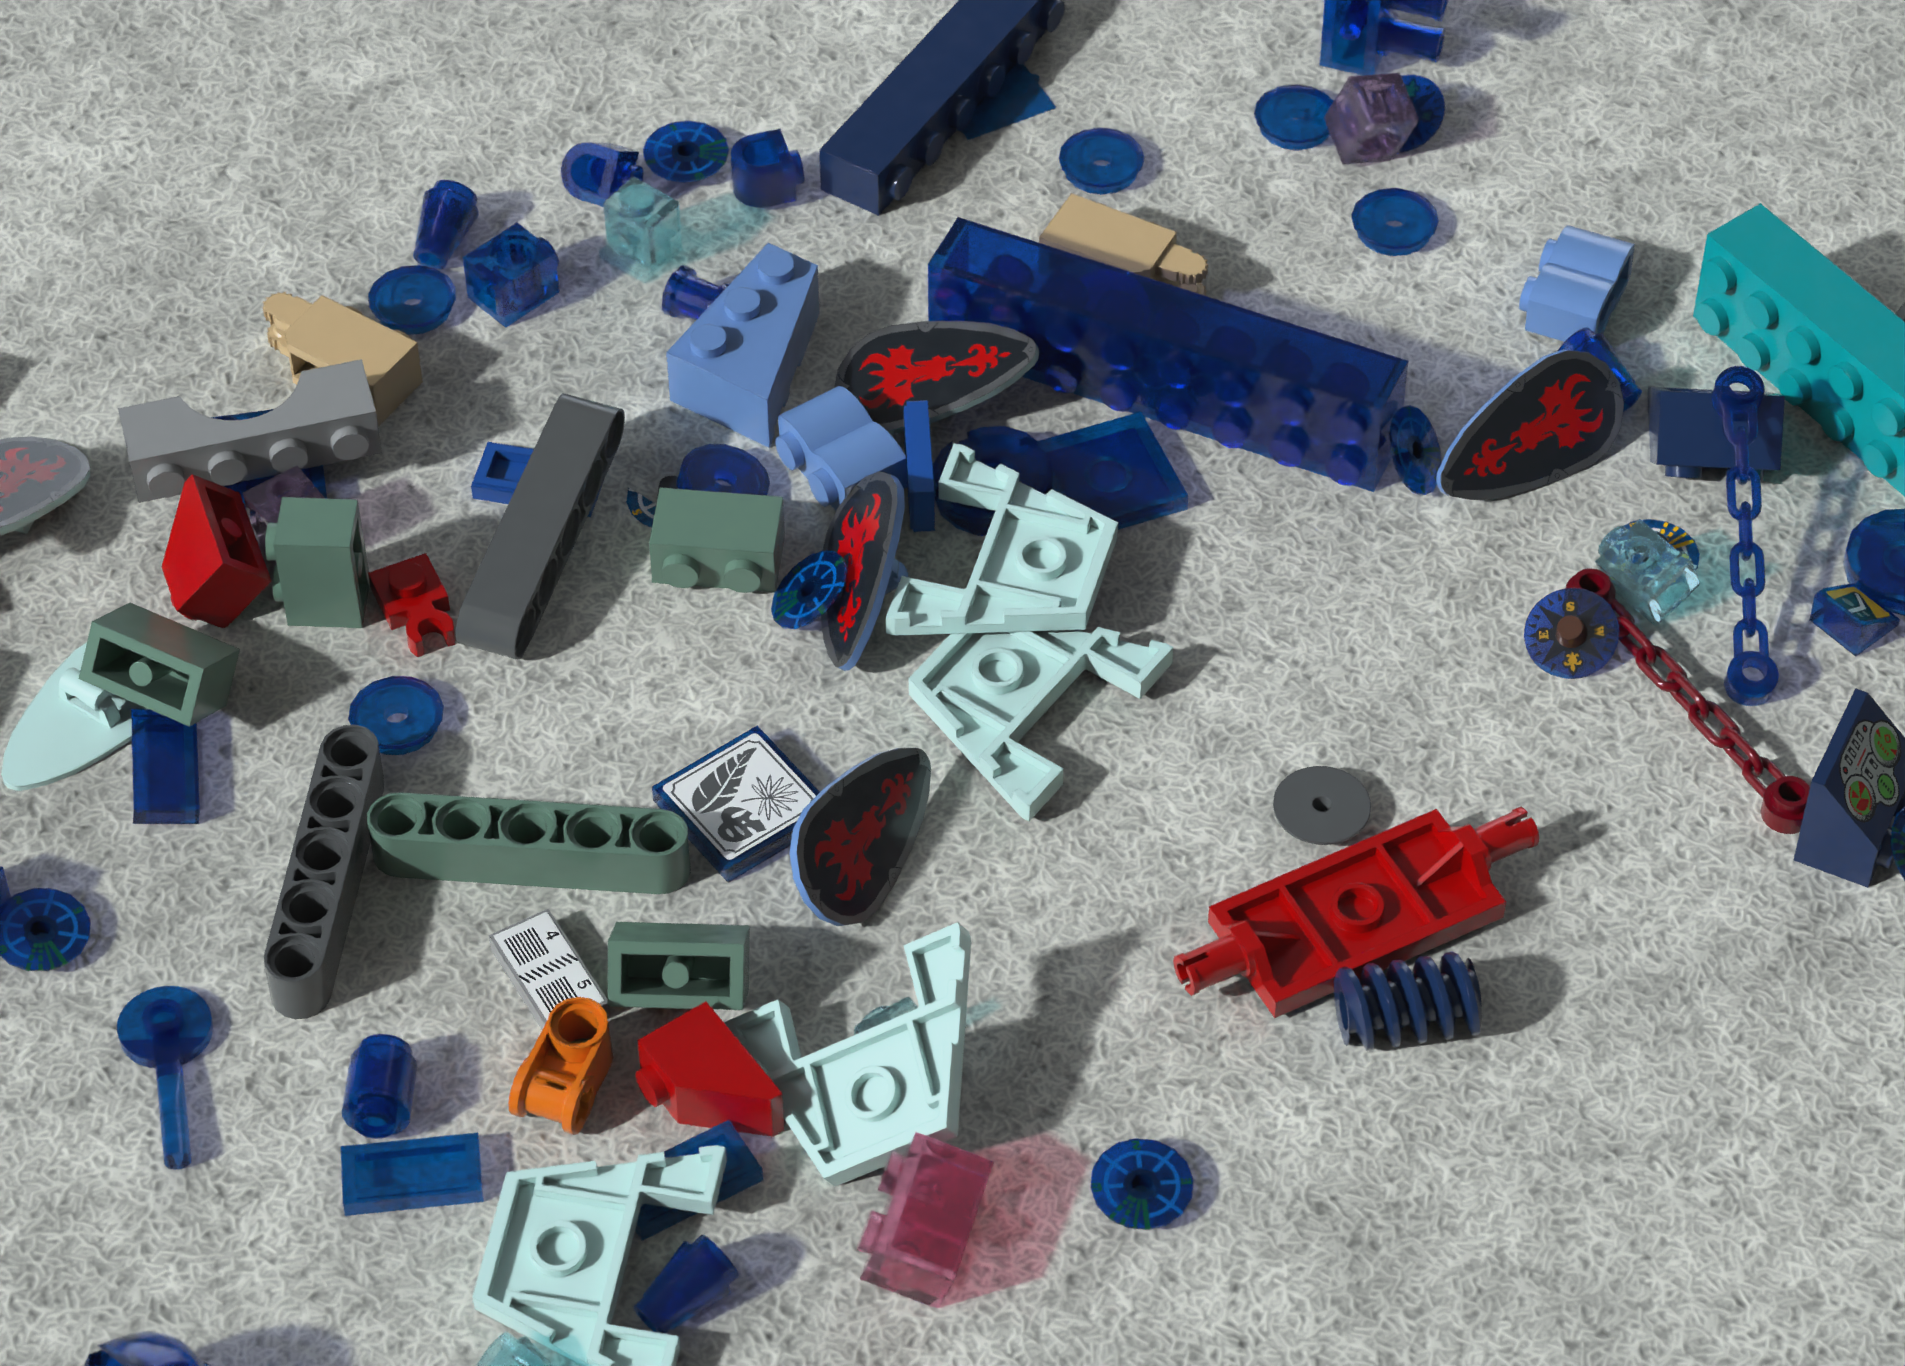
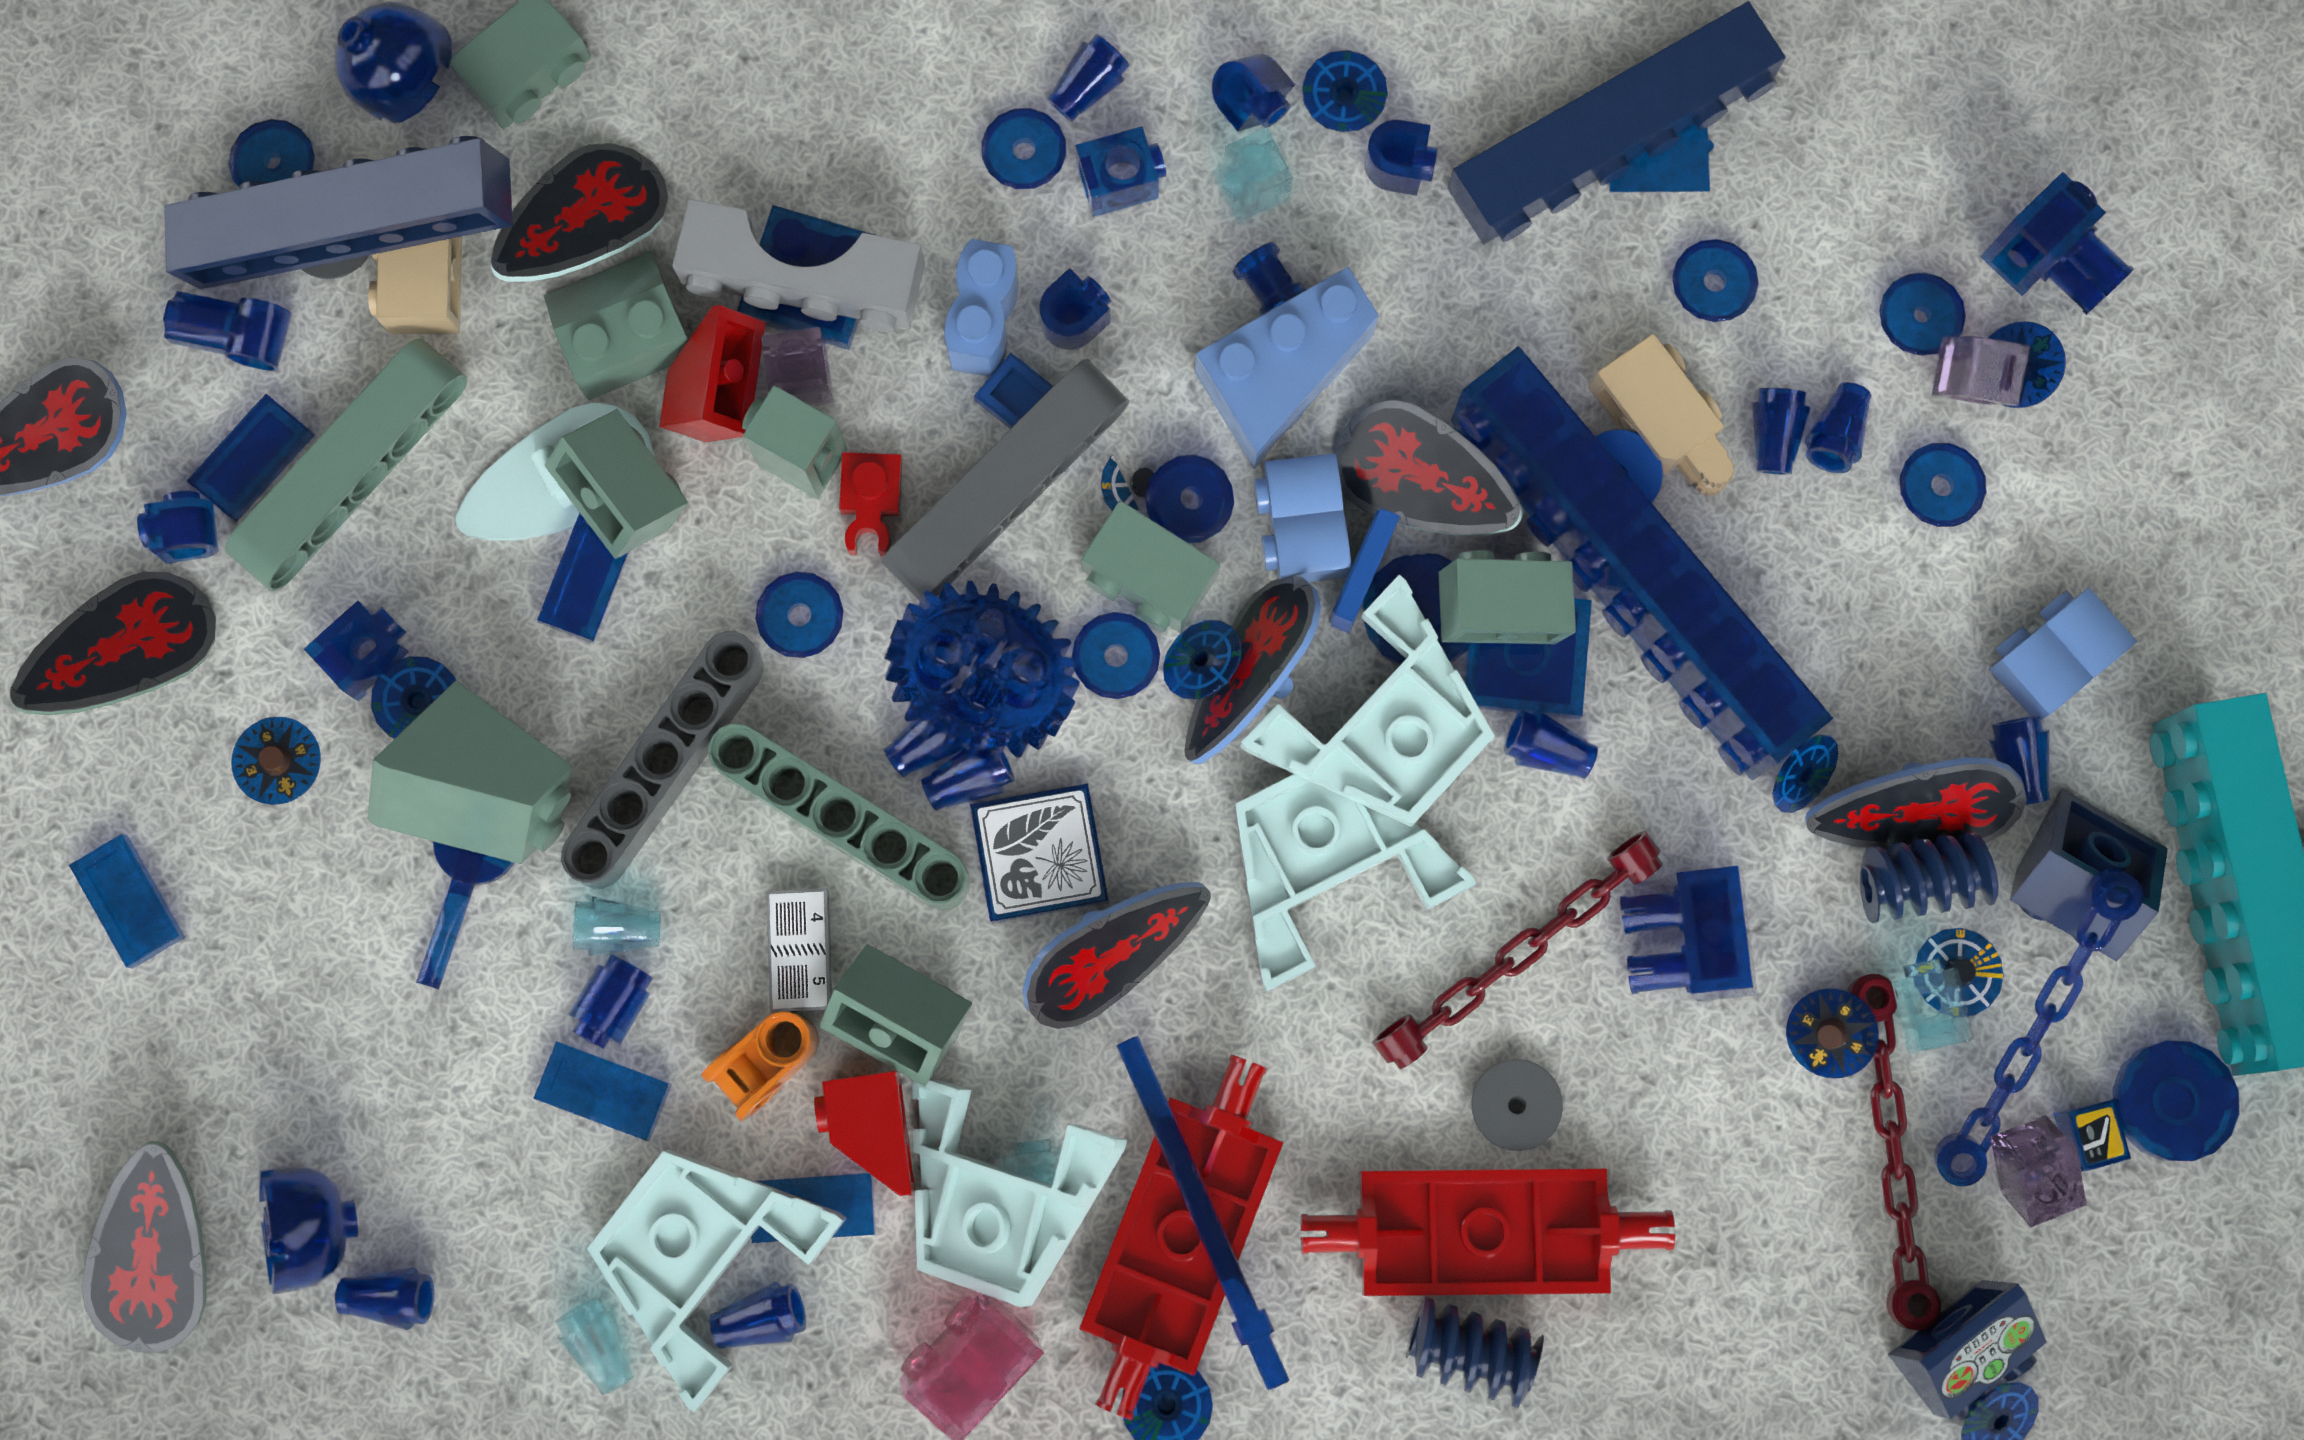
camera: 25 degrees right, 30 degrees up
(95, 561) = (617, 325): none -> sand green slope
(144, 936) = (470, 781): none -> sand green slope
(337, 334) = (928, 192): tan hinge -> none
(337, 1026) = (614, 927): none -> clear light blue cone
(442, 412) = (986, 298): none -> medium blue brick
(530, 384) = (1074, 311): none -> clear blue plate
(582, 750) = (912, 752): none -> clear blue cone
(604, 662) = (954, 631): none -> clear blue gear
(640, 761) = (967, 779): none -> clear blue cone
(724, 607) = (1111, 631): none -> clear blue piece
(1064, 420) = (1506, 599): none -> sand green brick
(1068, 1034) = (1157, 1281): none -> red plate
(1172, 527) = (1549, 746): none -> clear blue cone
(1179, 1058) = (1251, 1324): none -> clear blue bar
(1183, 798) = (1403, 1039): none -> dark red piece
(1224, 228) = (1778, 428): none -> clear blue cone
(1280, 214) = (1840, 430): none -> clear blue cone
(1411, 584) = (1716, 930): none -> clear blue brick
(1574, 479) = (1927, 872): none -> dark blue piece
(1823, 645) = (2038, 1171): none -> clear purple brick

